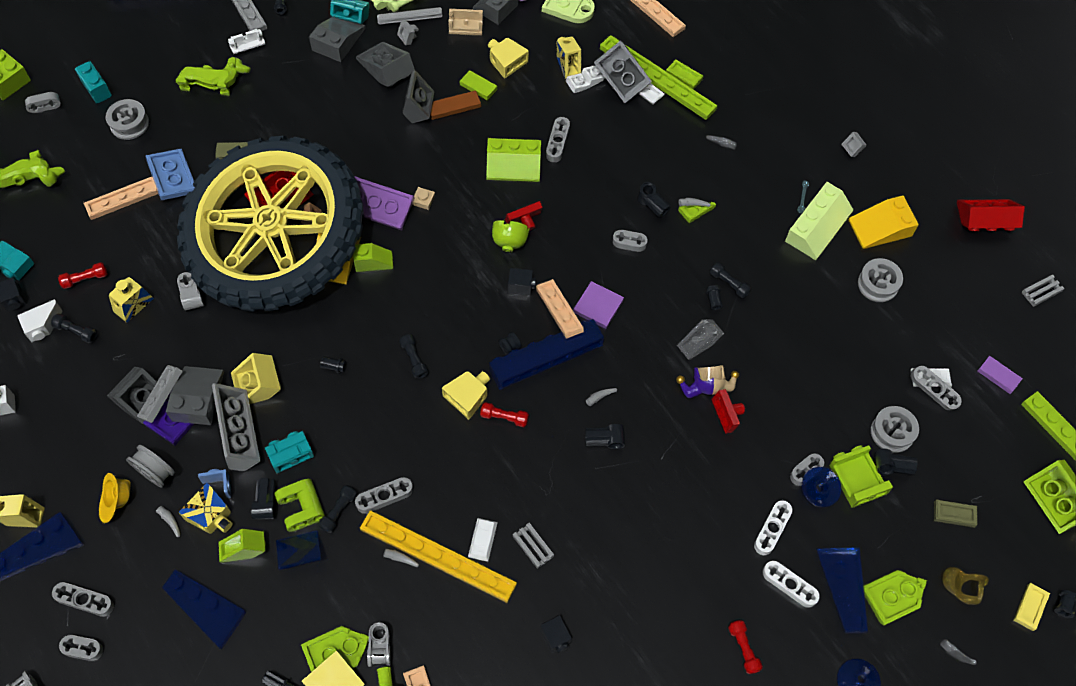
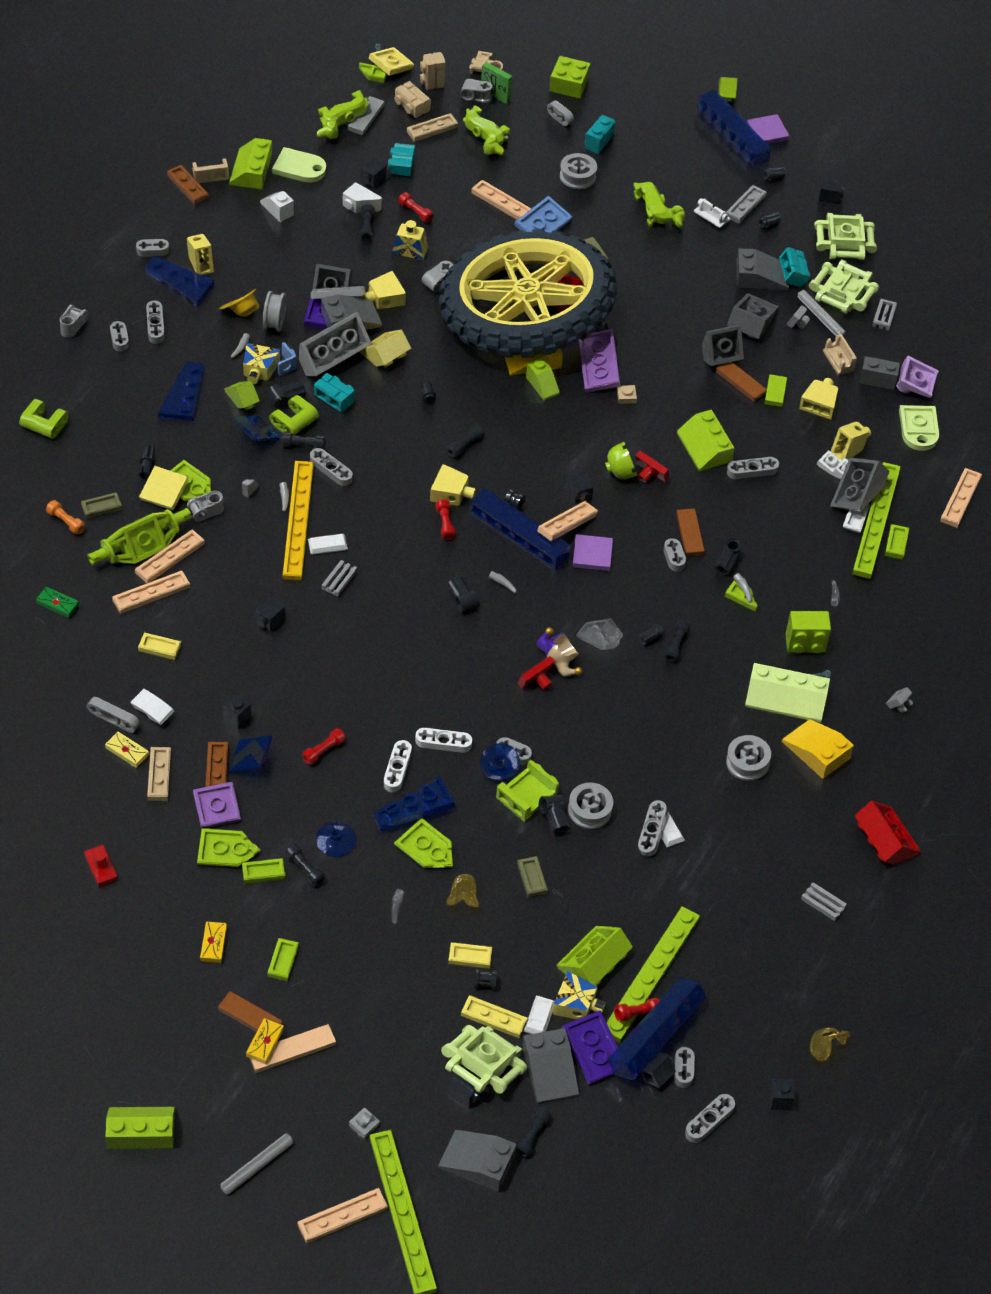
camera: 65 degrees right, 10 degrees down
(181, 347) = (386, 292): none -> light yellow torso
(372, 588) = (249, 487): none -> light grey tile
(608, 217) = (690, 532): none -> dark orange tile
(768, 176) = (808, 631): none -> lime brick
(999, 374) = (701, 883): medium lavender tile -> none

